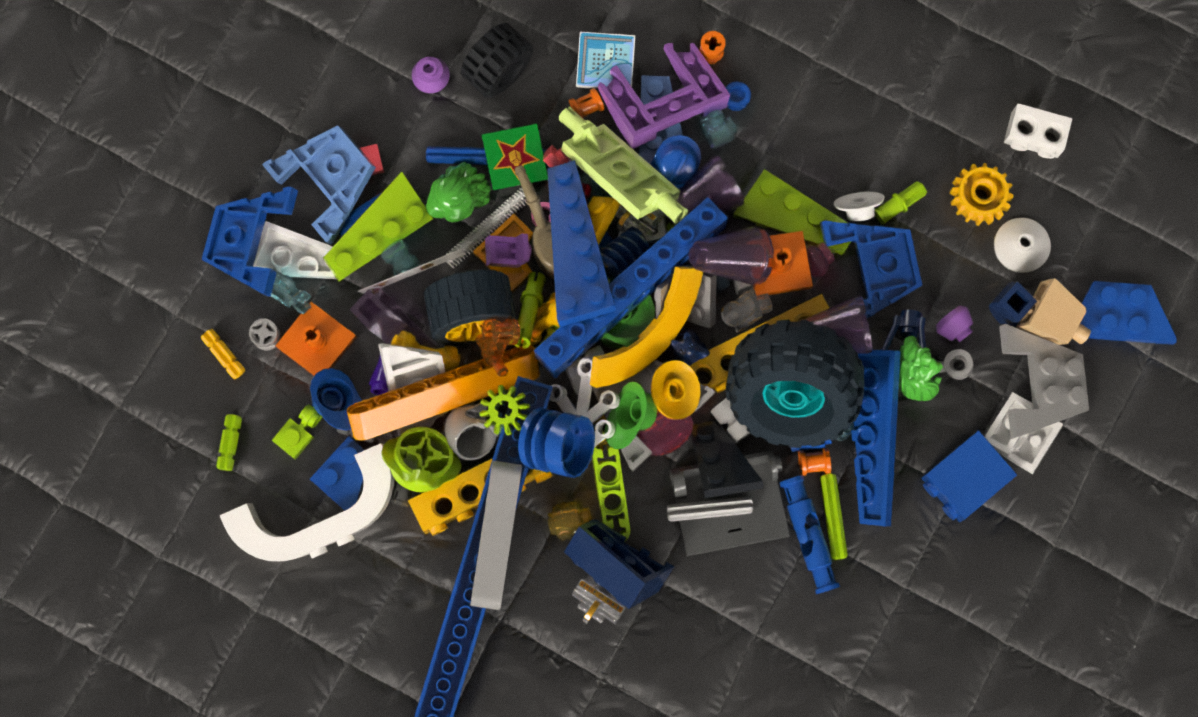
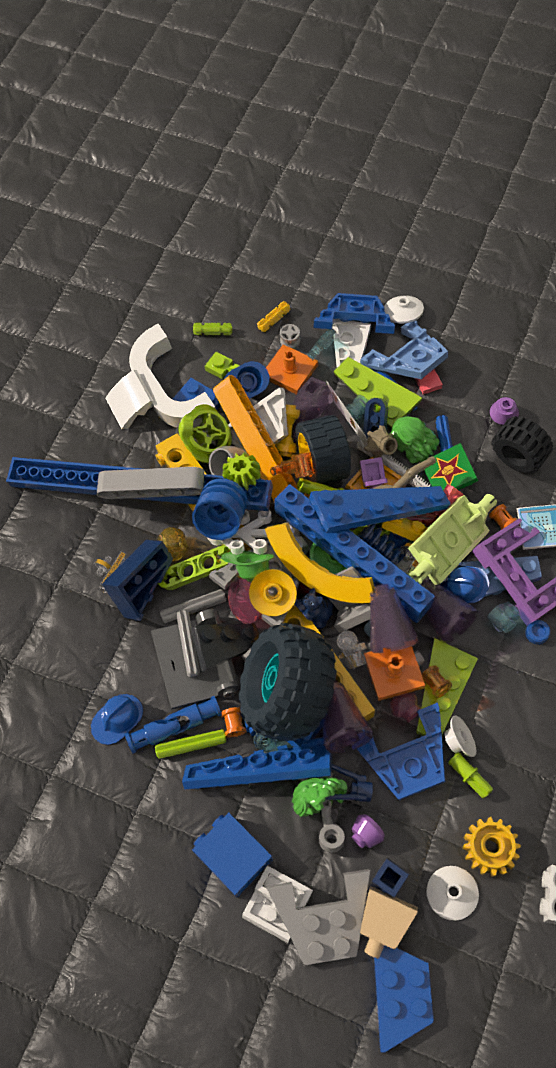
camera: 90 degrees right, 15 degrees down
(253, 178) = (404, 309): none -> white dish
(338, 565) = (129, 399): none -> white slope
(421, 234) = (372, 417): none -> dark blue plate
(467, 232) = (380, 442): none -> dark tan rock
(656, 501) = (194, 605): none -> light grey axle
(792, 606) = (116, 718): none -> blue piece
(794, 218) = (436, 681): none -> clear orange bush

